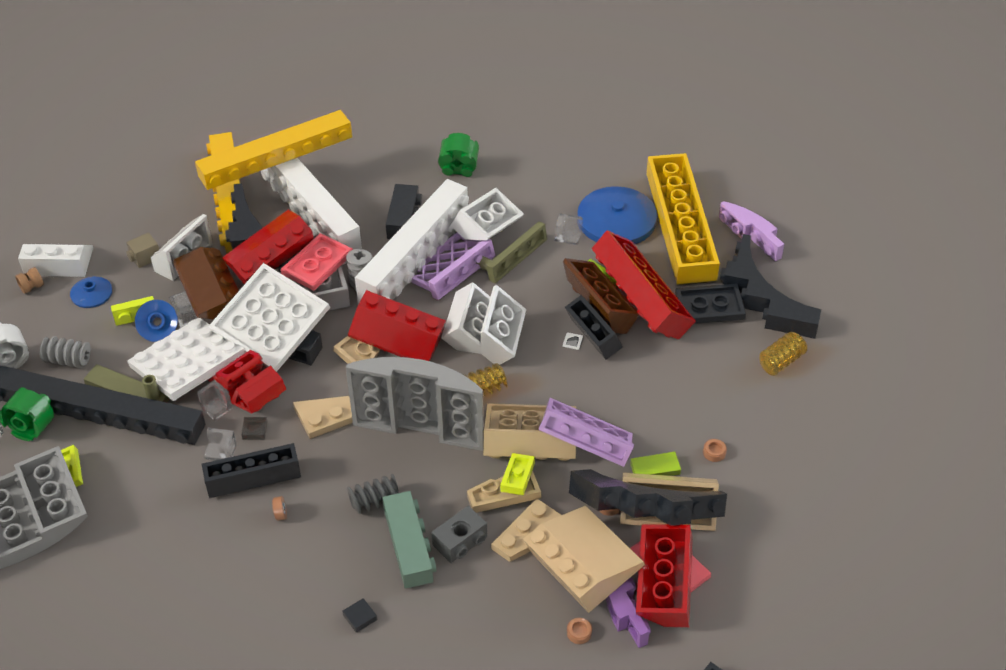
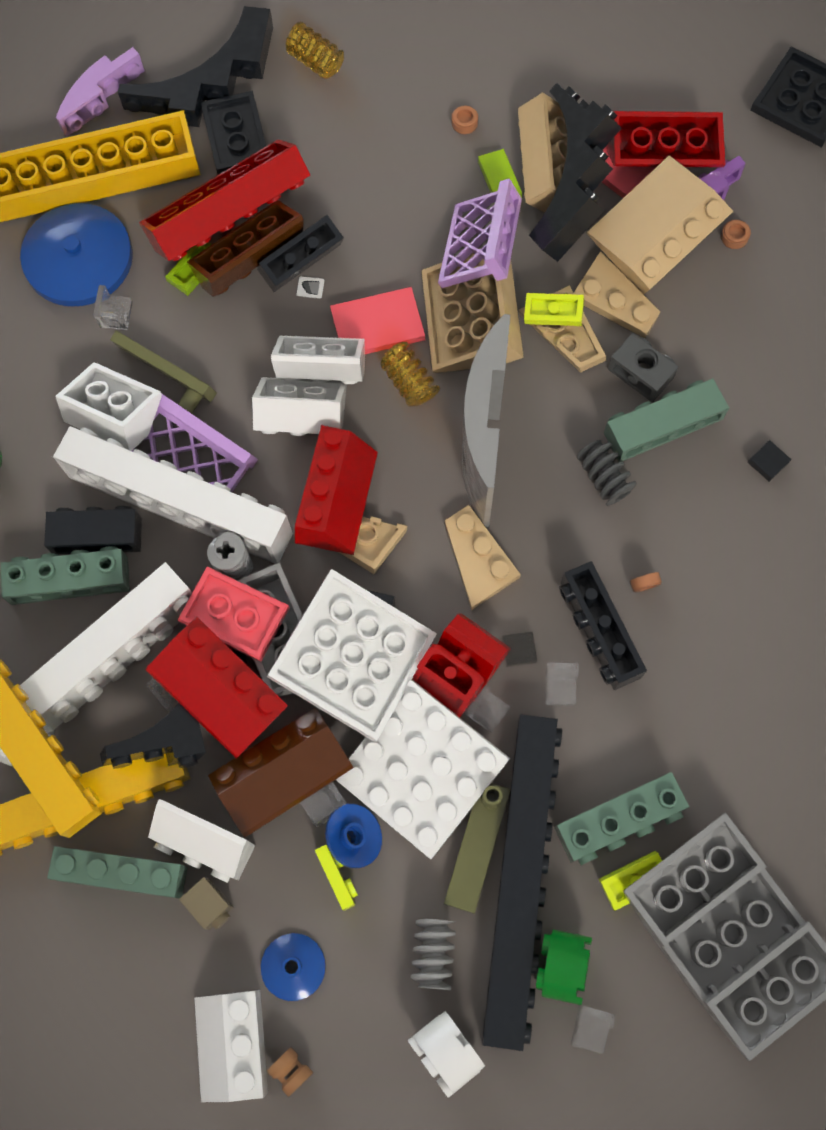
camera: 95 degrees left, 25 degrees up
(112, 467) = (622, 817): none -> sand green brick
(177, 209) = (117, 872): none -> sand green brick
(375, 198) = (65, 576): none -> sand green brick
(534, 375) = (380, 320): none -> coral tile

